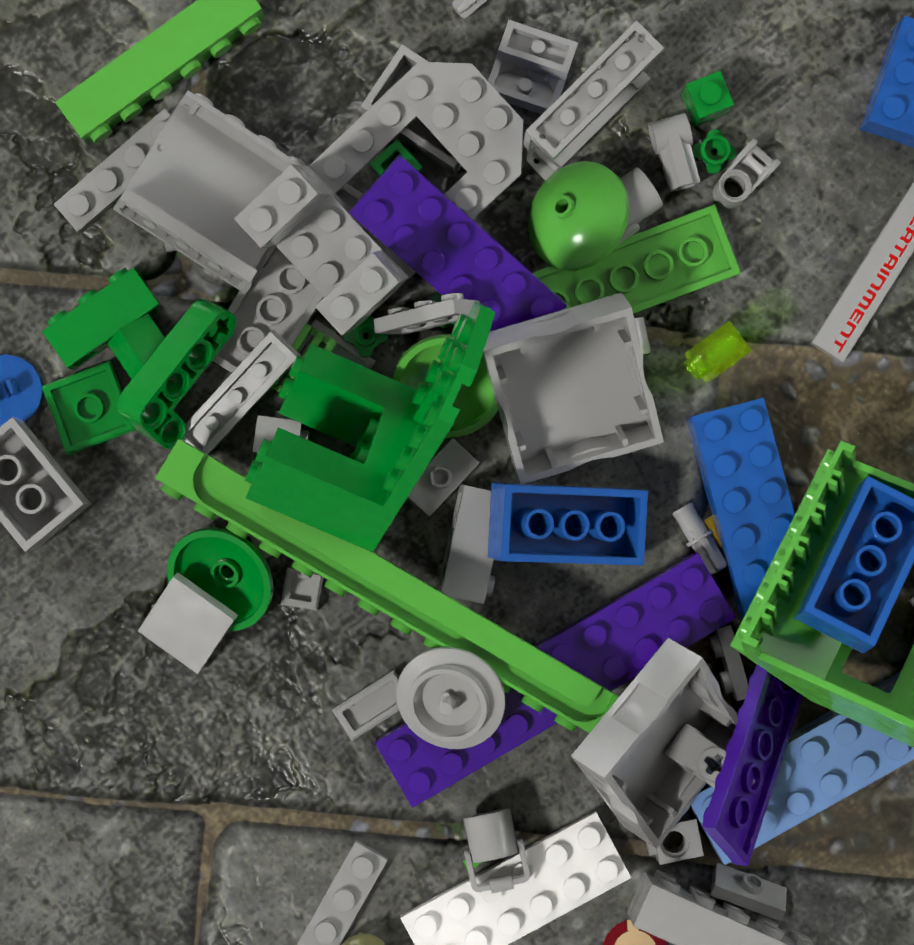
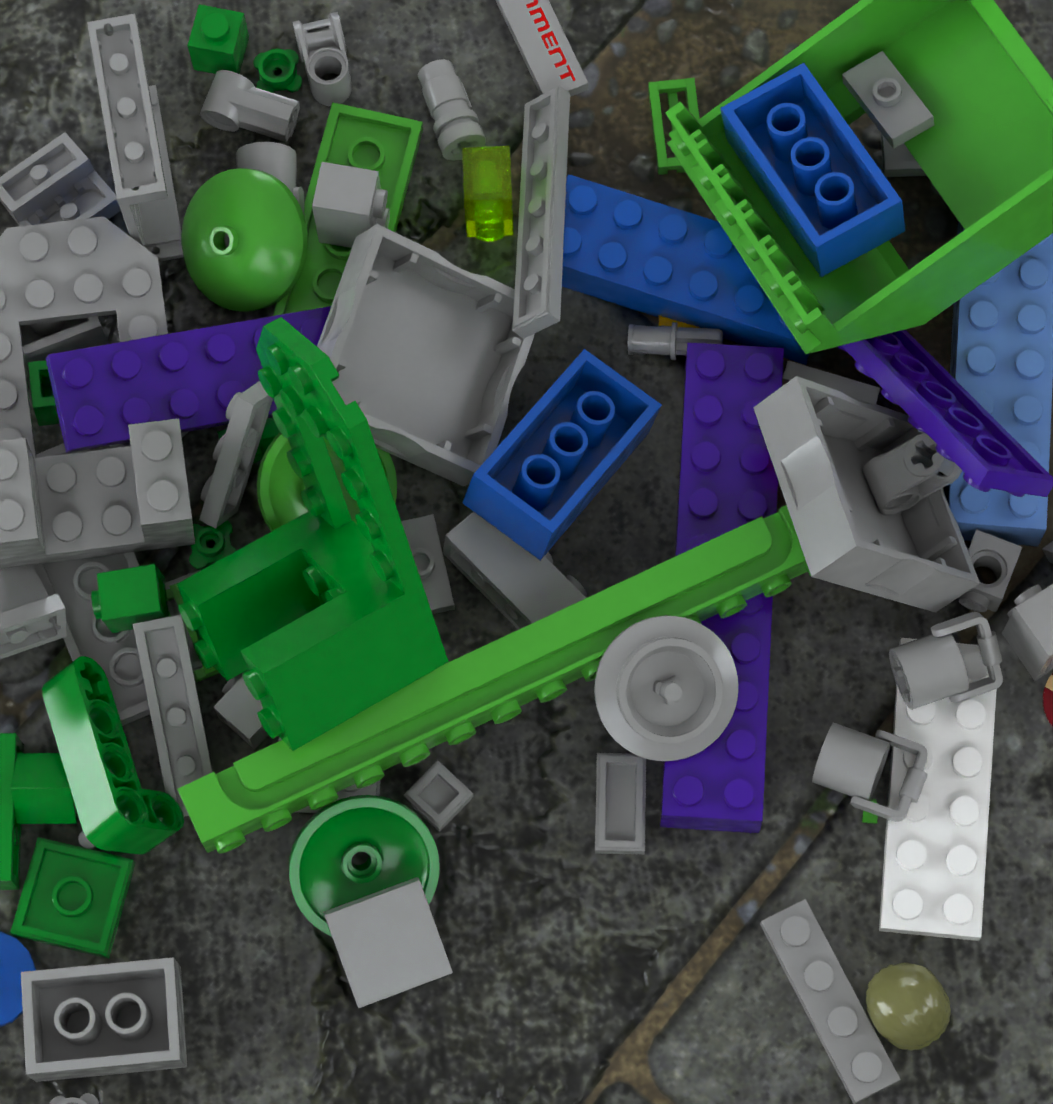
camera: 50 degrees left, 15 degrees down
(290, 315) = (130, 597): none -> green brick
(584, 851) = (935, 668): none -> light grey piece
(641, 273) = (348, 203): none -> light grey brick
(725, 398) = (541, 213): none -> light grey tile
(763, 283) = (450, 108): none -> light grey axle
(876, 418) = (670, 87): none -> bright green tile

